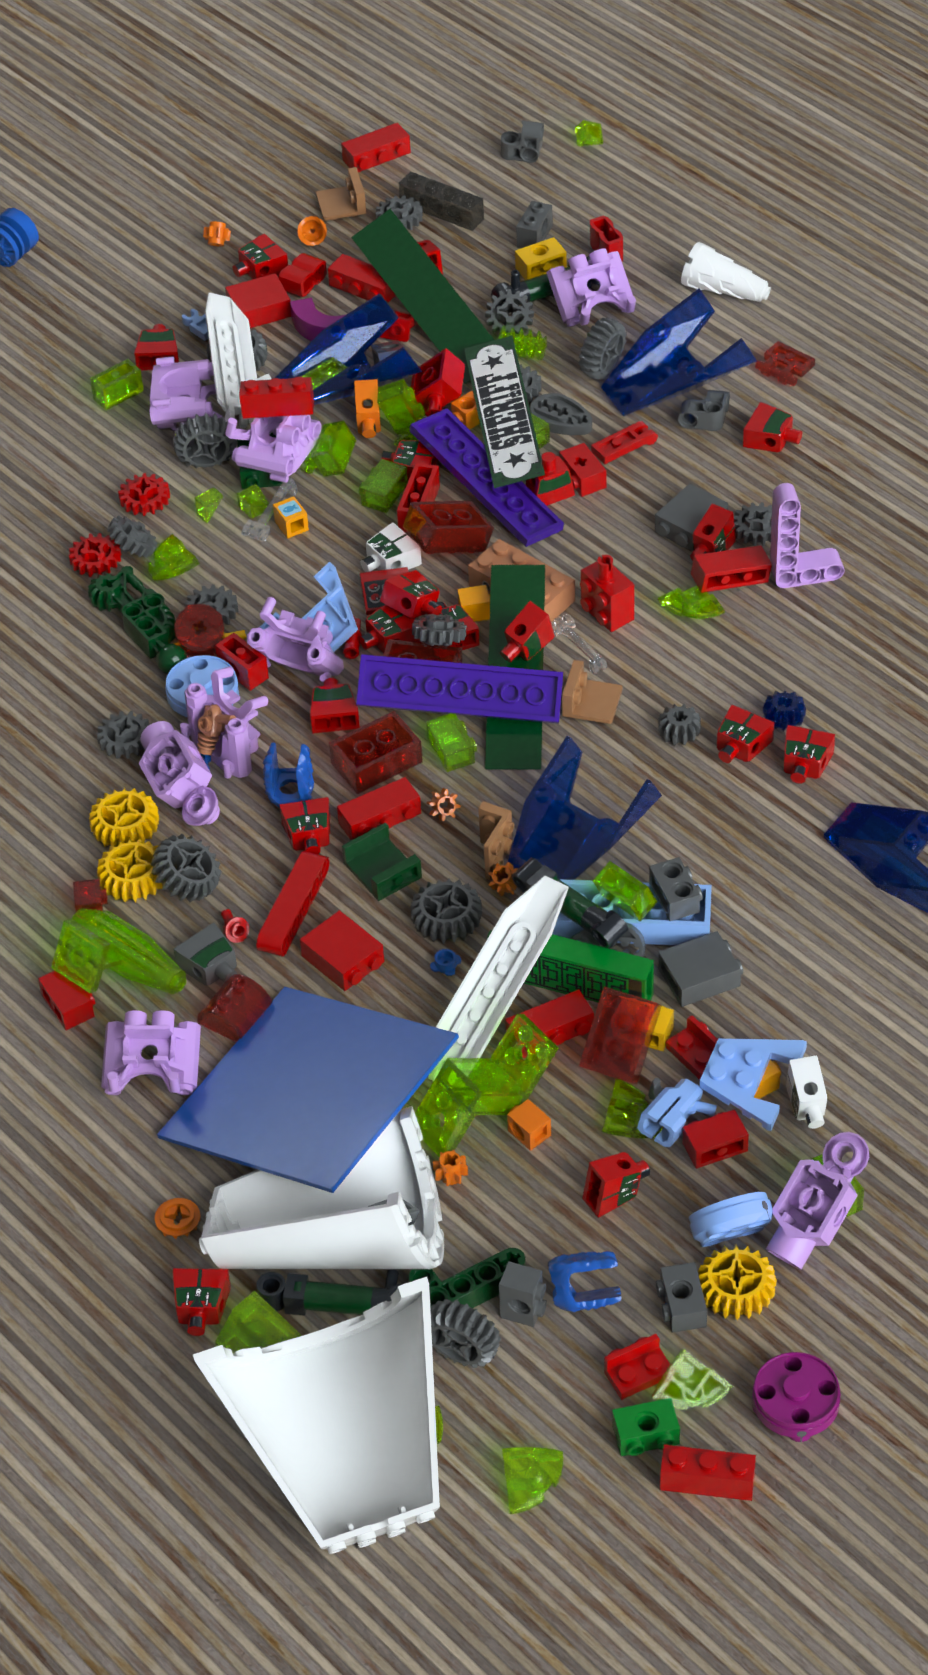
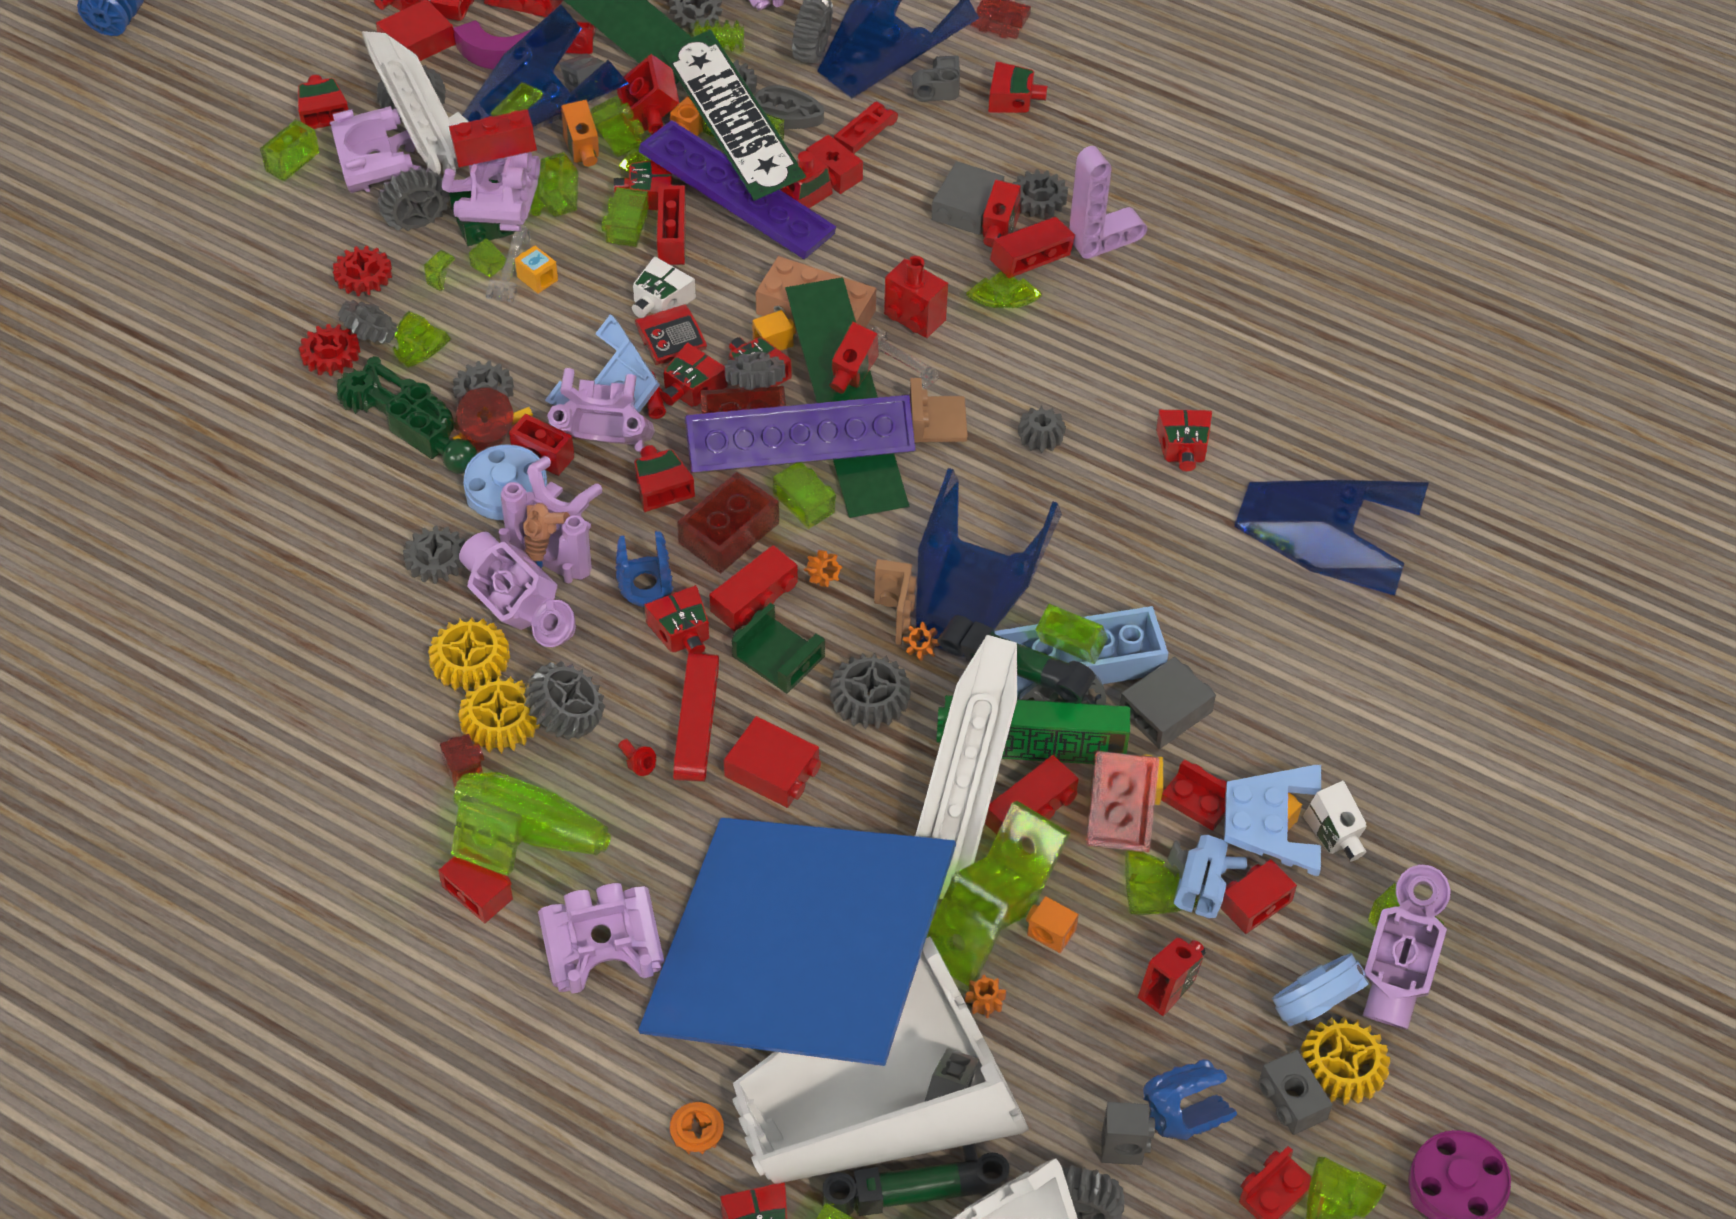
camera: 20 degrees left, 5 degrees up
(197, 324) = (358, 69): light blue plate -> none
(207, 956) = (623, 800): dark grey torso -> none
(235, 1007) = (674, 855): clear red brick -> none
(411, 595) = (708, 336): red torso -> none
(445, 956) = (891, 744): blue plate -> none
(448, 527) = (718, 252): clear red brick -> none
(471, 1280) = (1059, 1130): dark green beam -> none
(675, 888) = (1122, 618): dark grey brick -> none
(743, 735) = (1112, 428): red torso -> none
(784, 709) = (1144, 393): clear blue gear -> none

